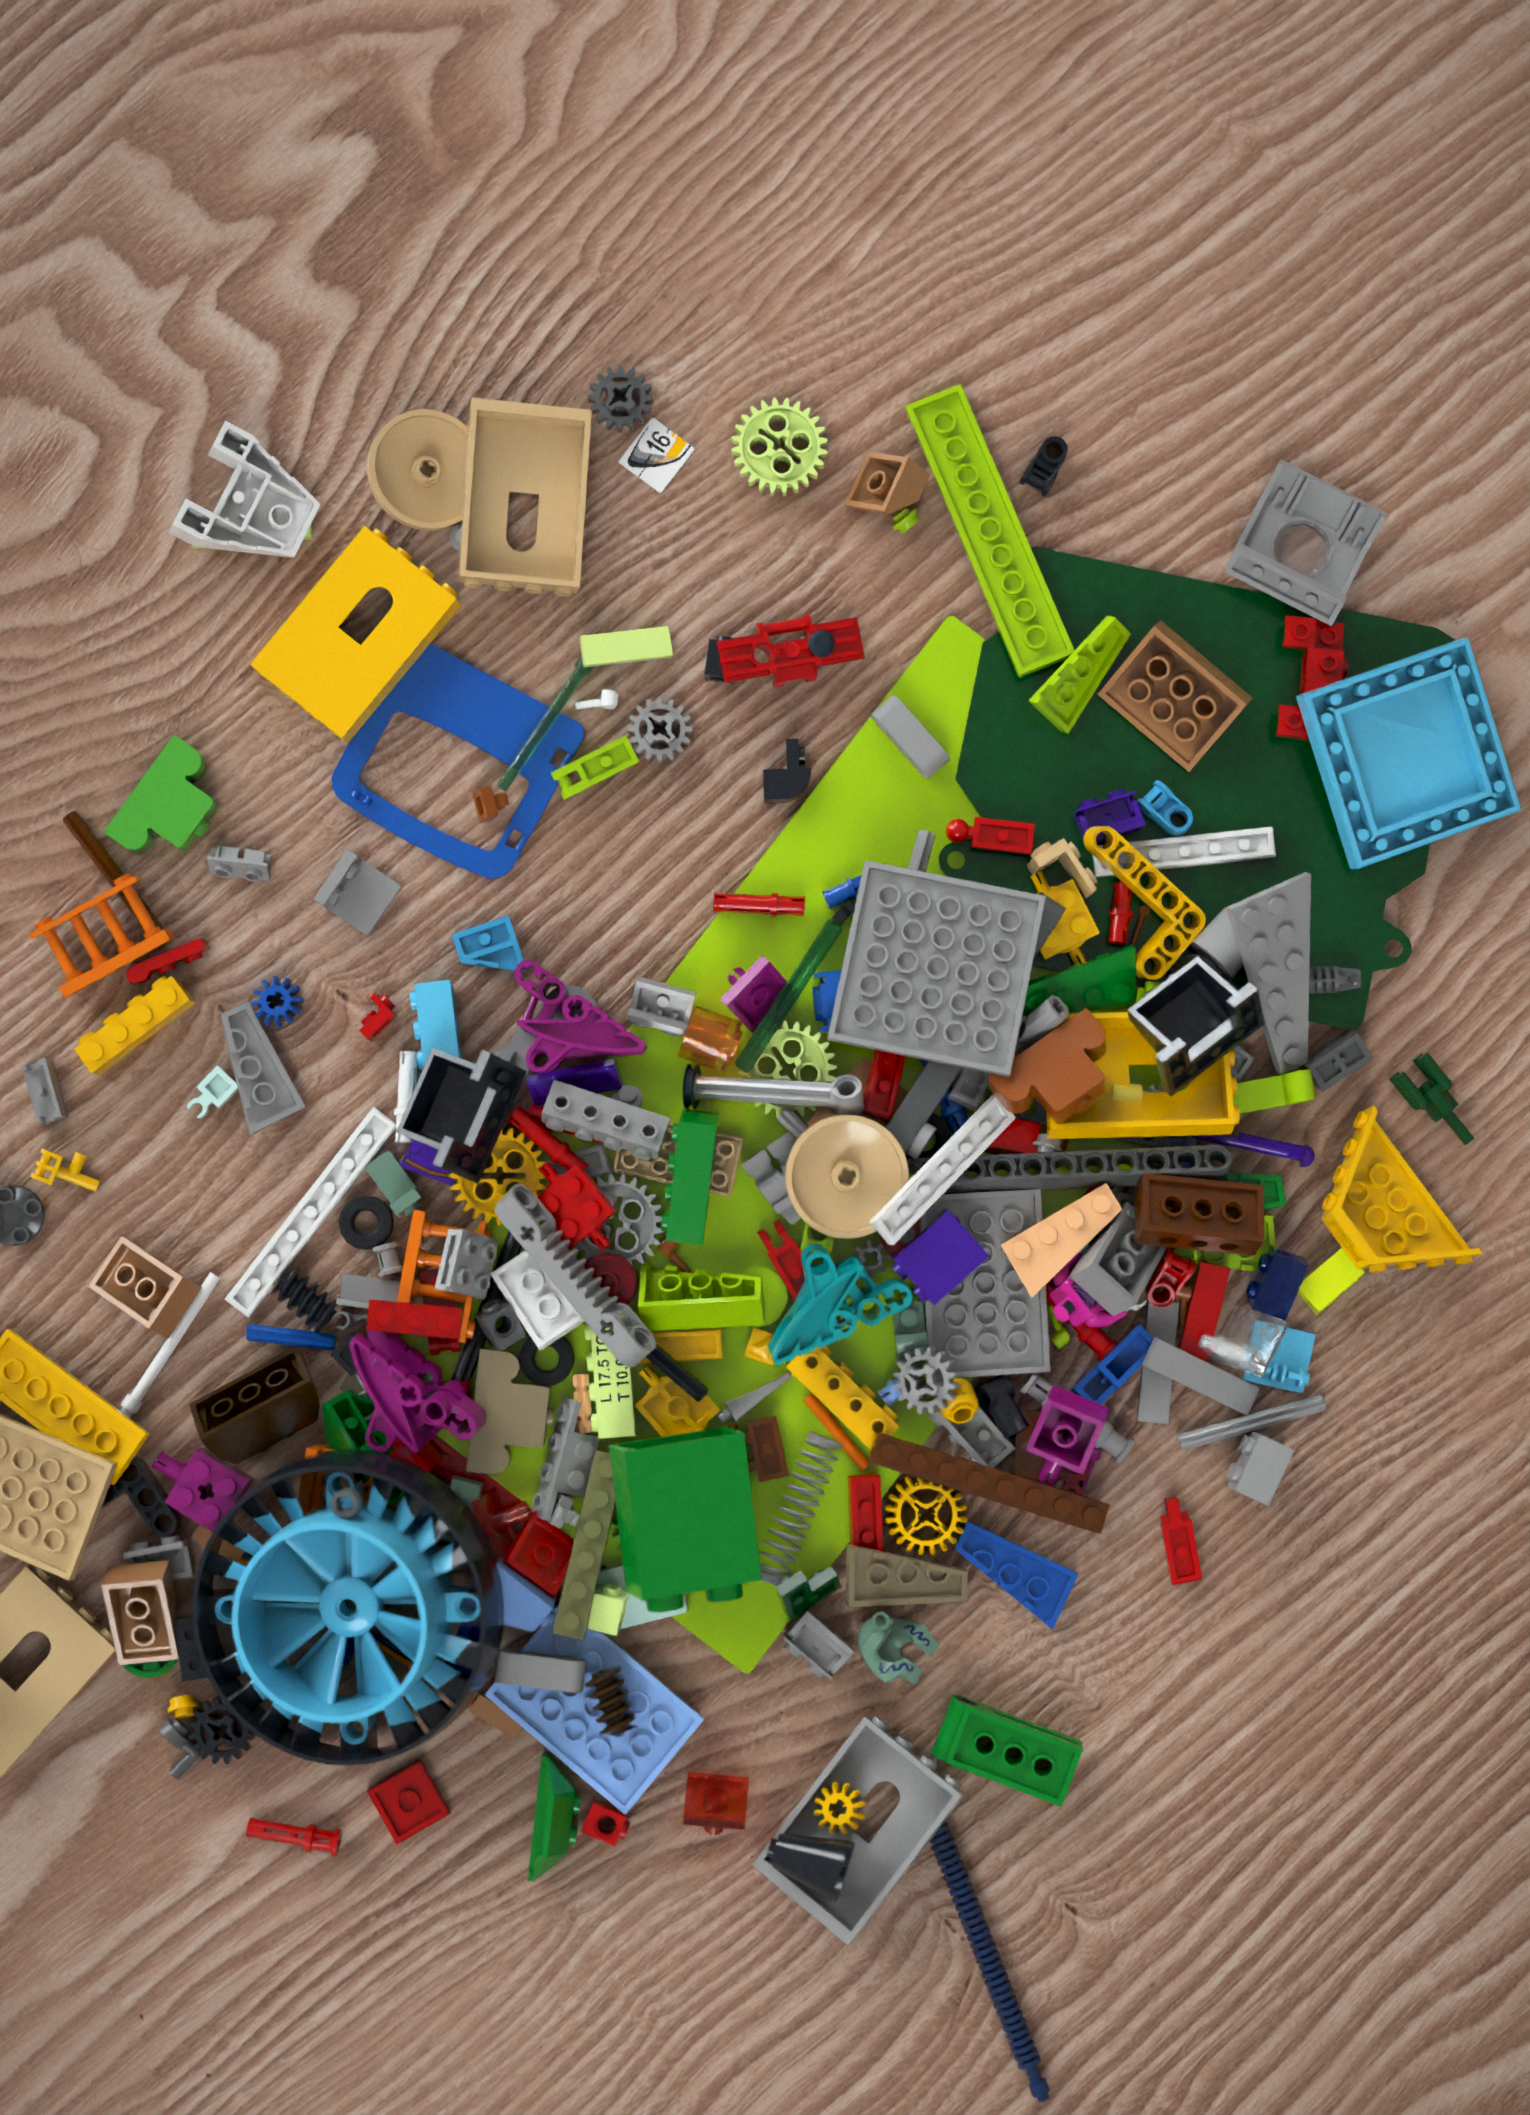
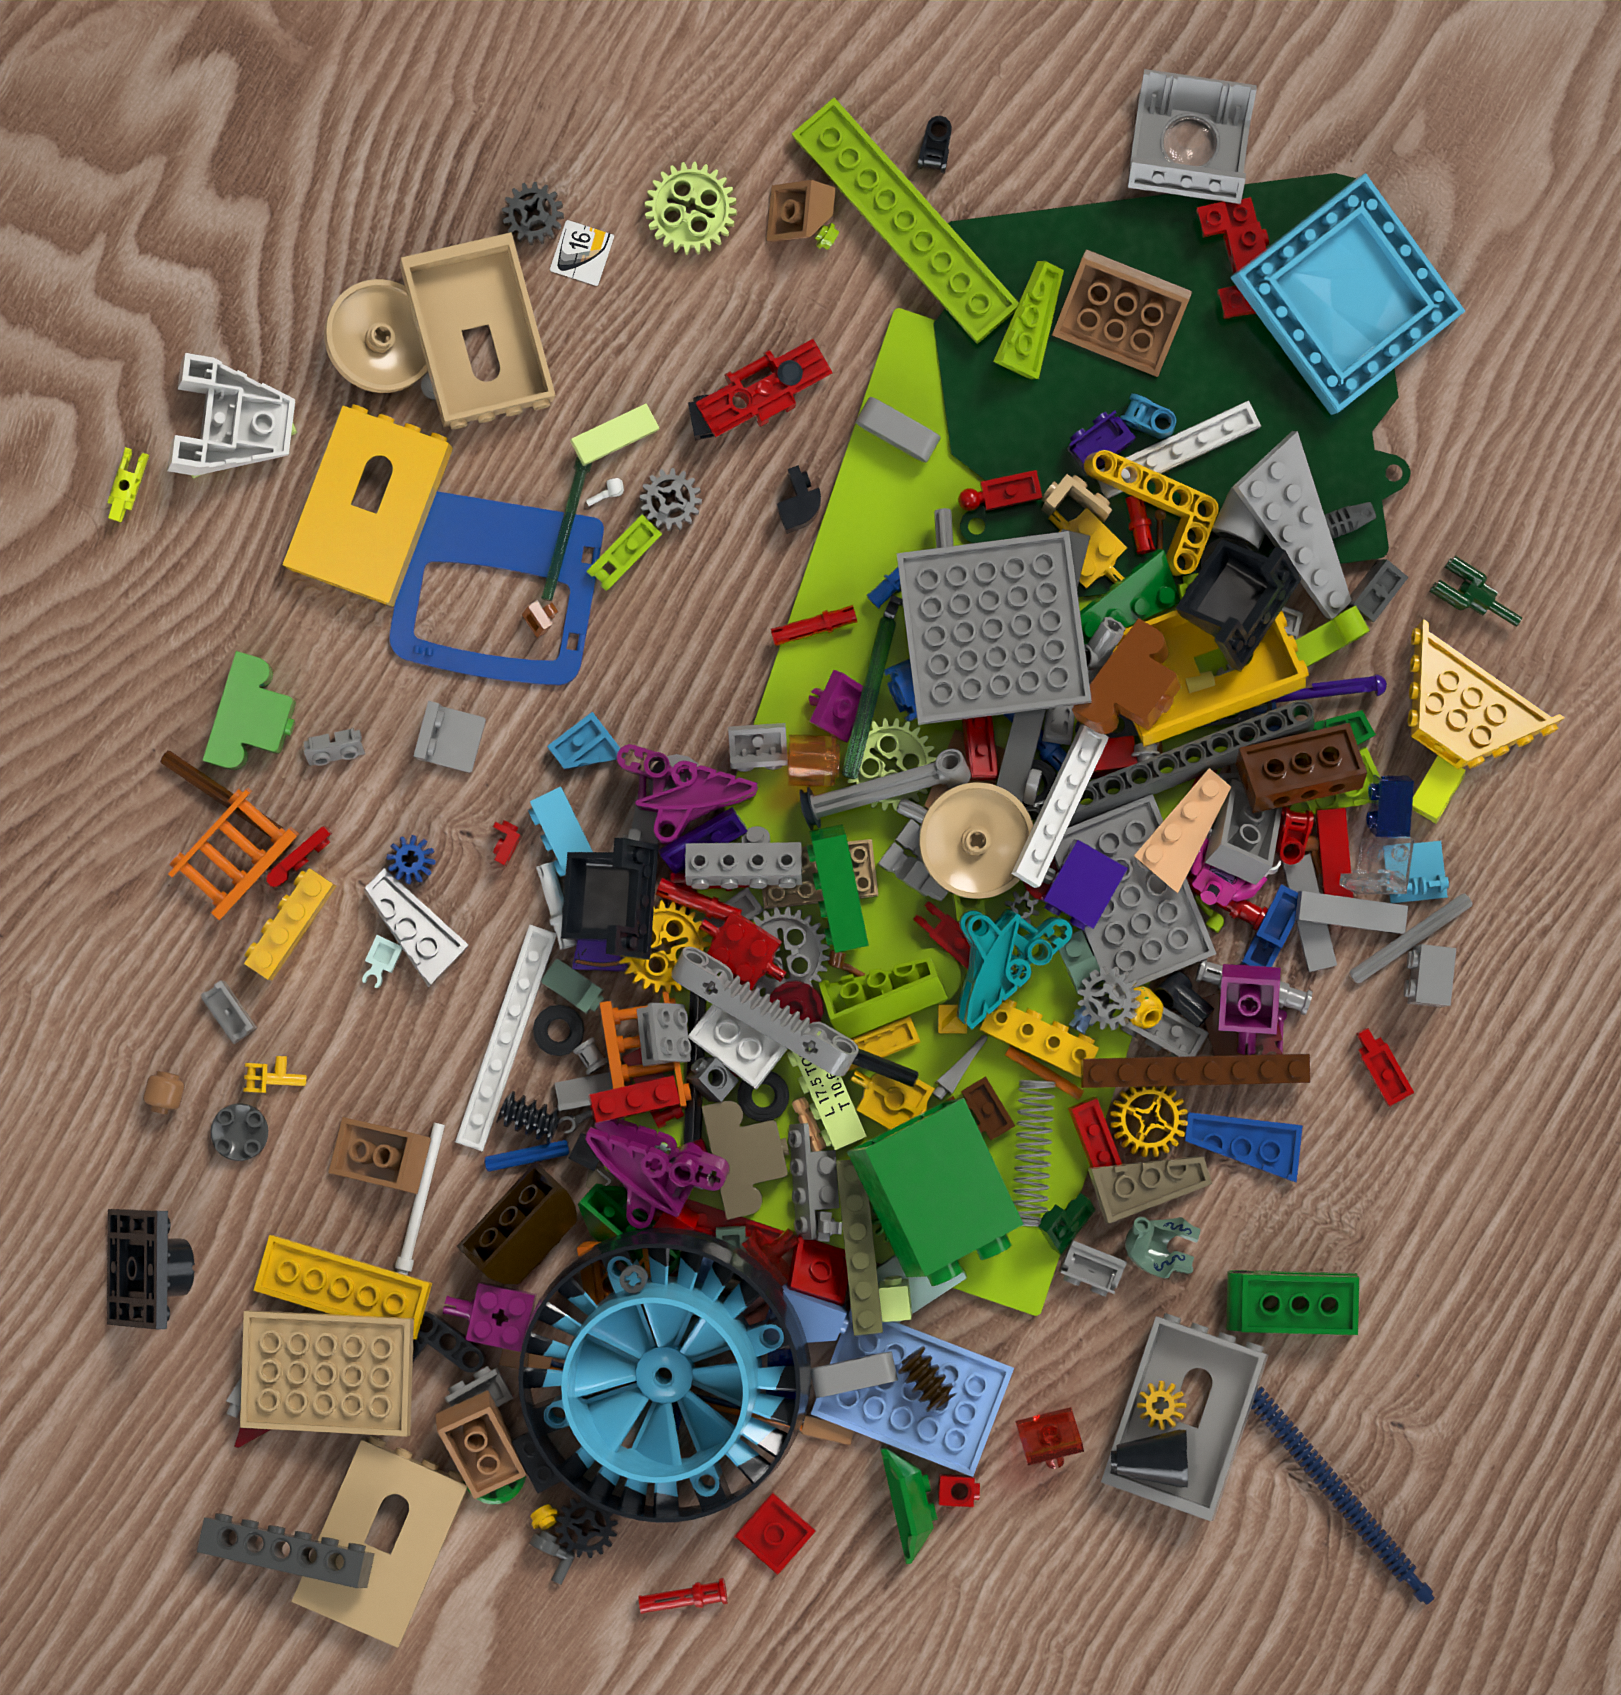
camera: 20 degrees left, 0 degrees up
(113, 544) = (125, 499): none -> neon yellow hinge

